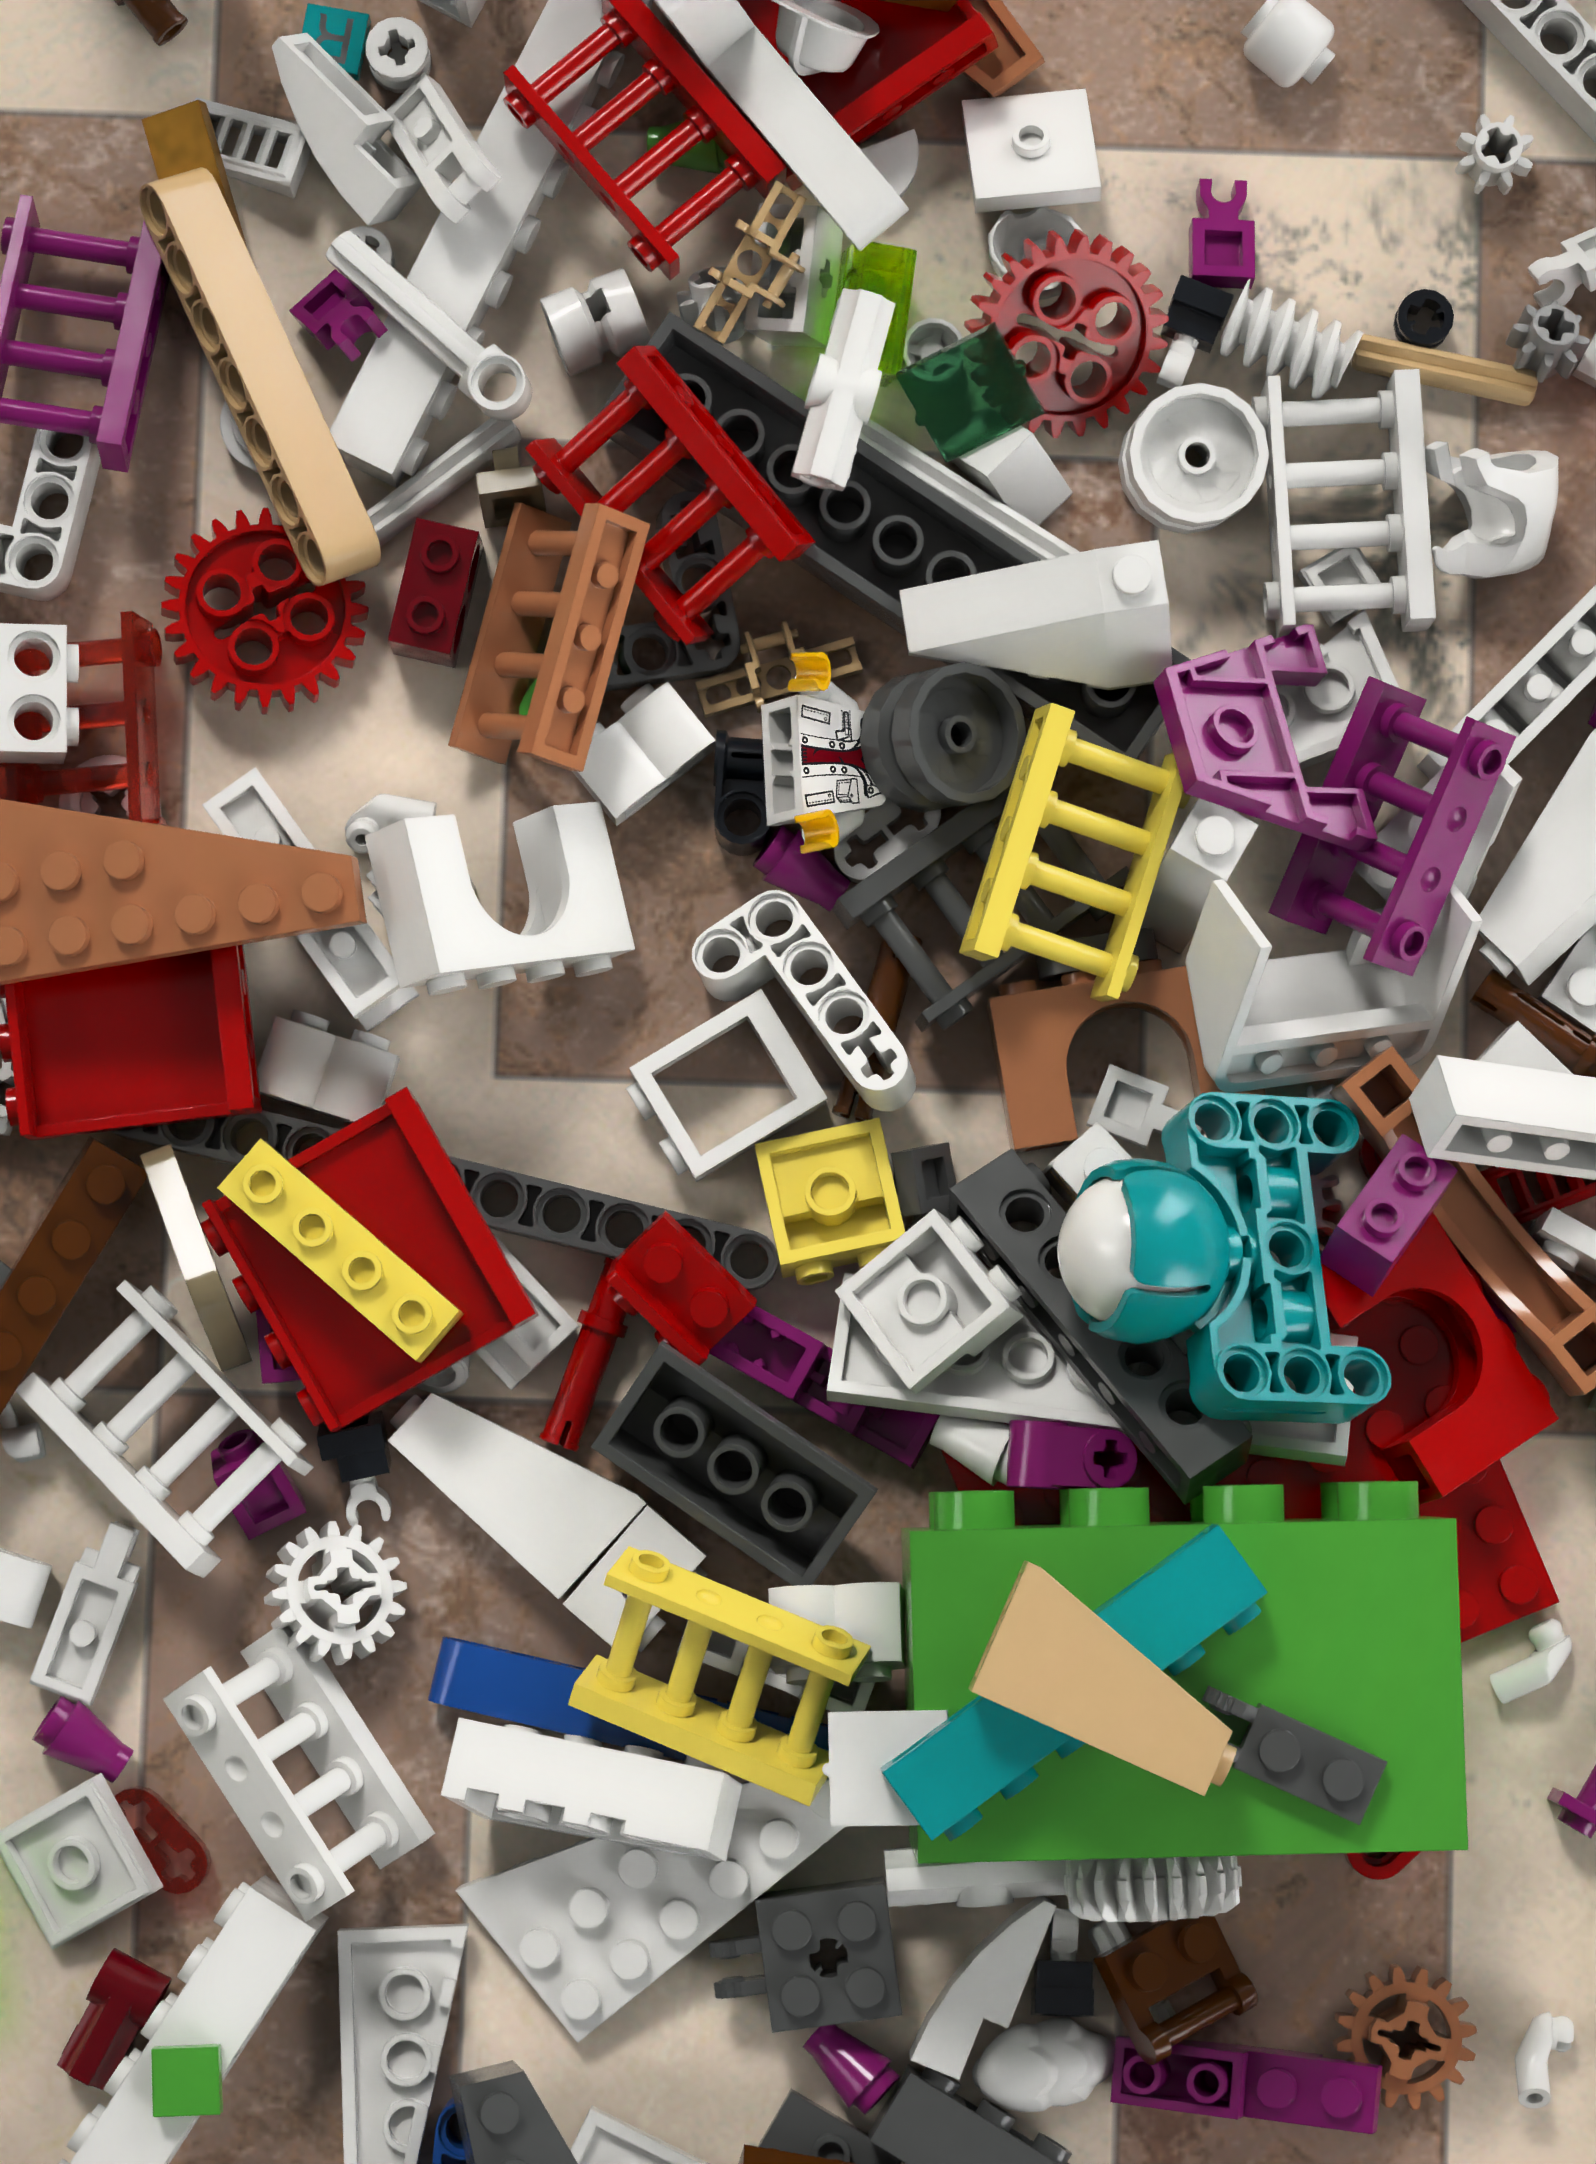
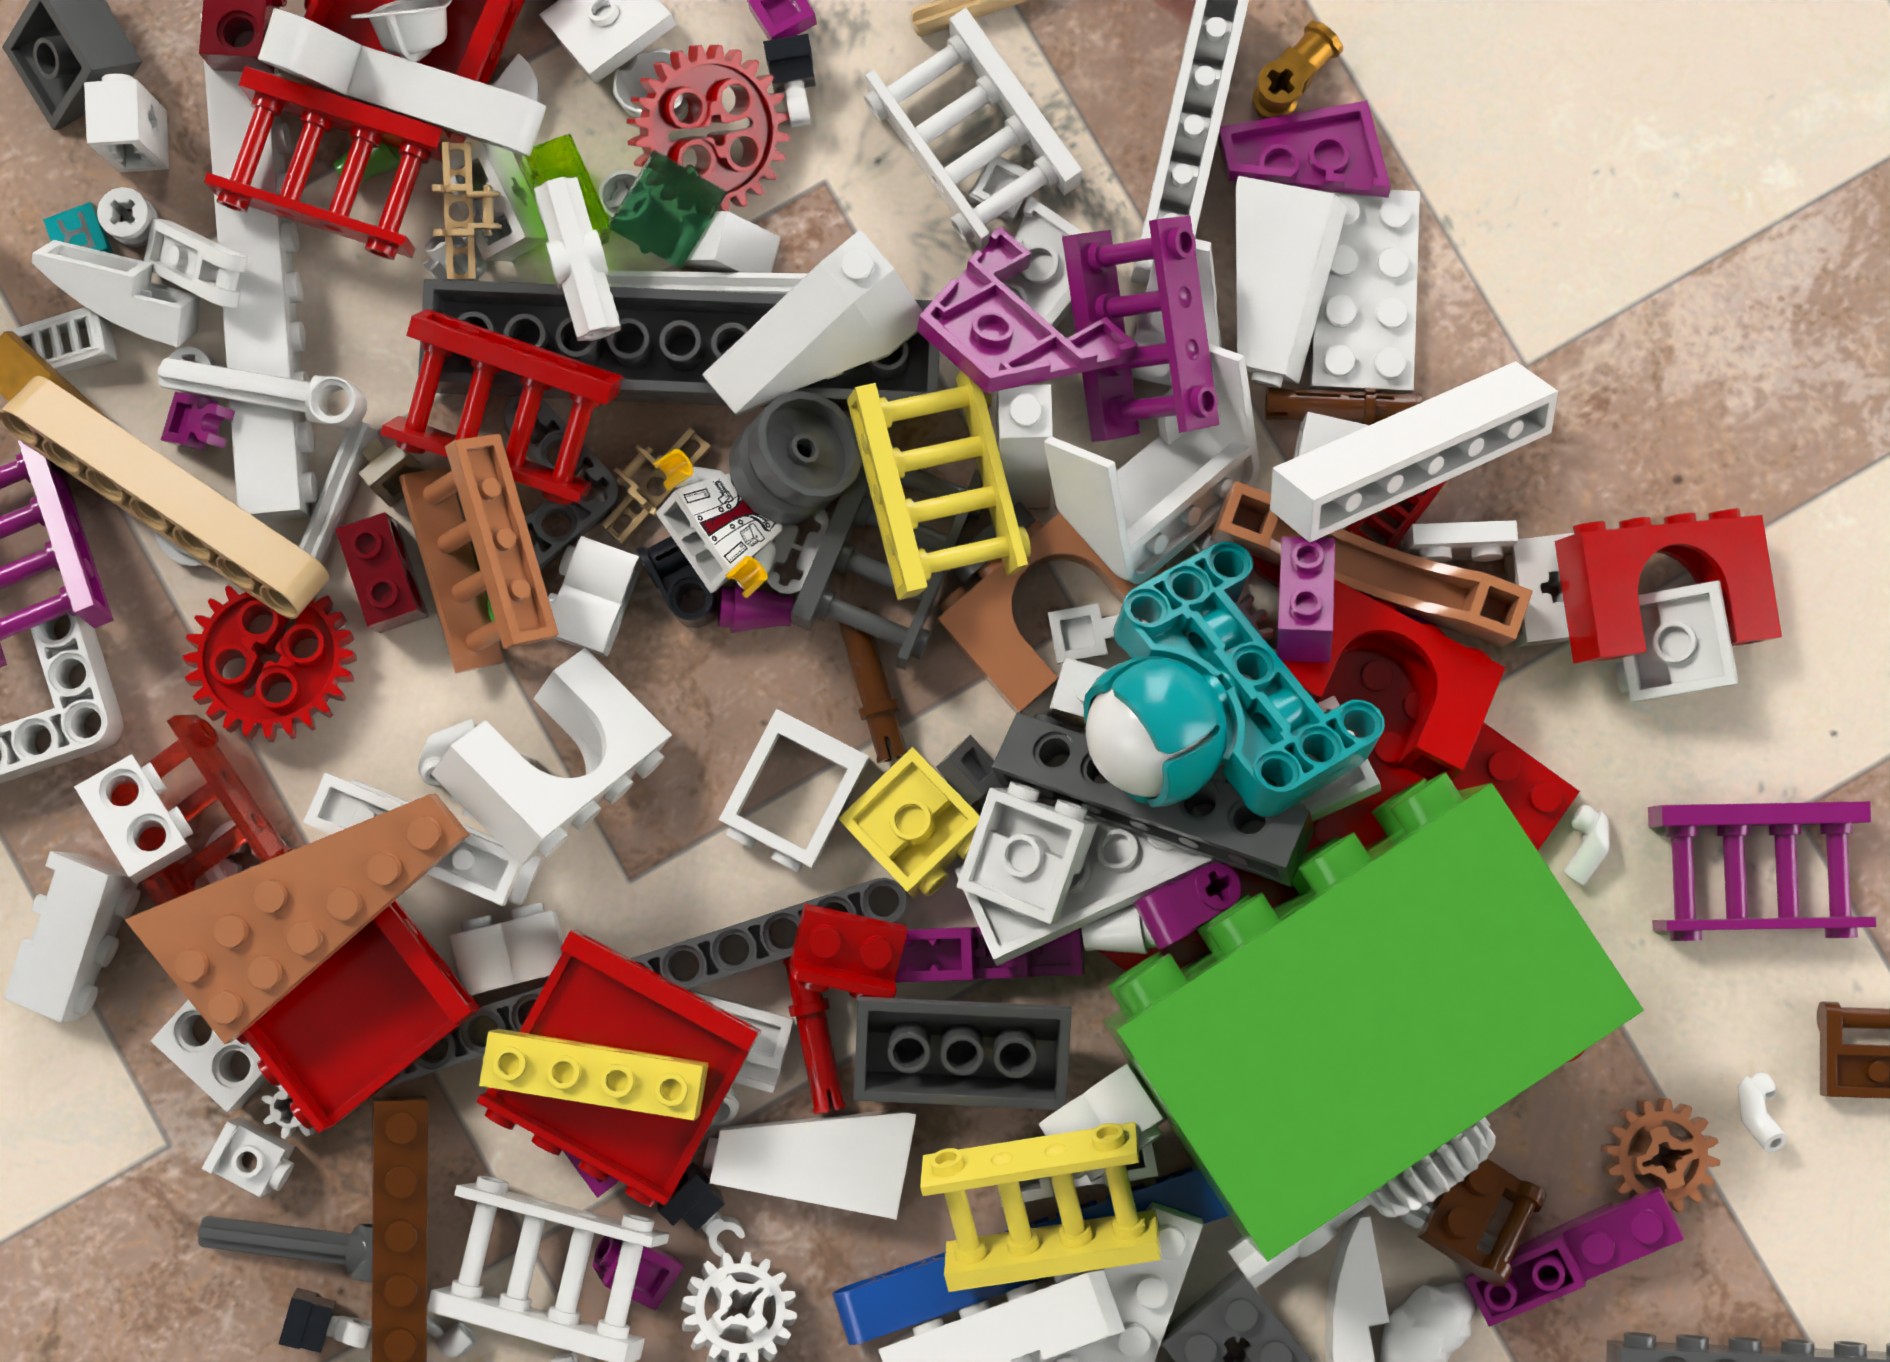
camera: 30 degrees left, 0 degrees up
(195, 1258) = (495, 1143): beam -> none
(573, 315) = (377, 318): white wheel -> none
(603, 1606) = (931, 1135): white brick -> none
(820, 1004) = (824, 692): white beam -> none
(857, 1750) = (1205, 1206): white piece -> none
(995, 1748) = (1299, 1067): teal brick -> none
(1061, 1983) = (1406, 1266): black piece -> none
(1087, 1681) = (1315, 1064): tan slope -> none
(1162, 481) = (855, 132): white wheel -> none
(1288, 341) = (865, 43): white piece -> none
(1301, 1758) = (1484, 1021): dark grey hinge -> none
(1506, 505) = (1082, 66): white piece -> none

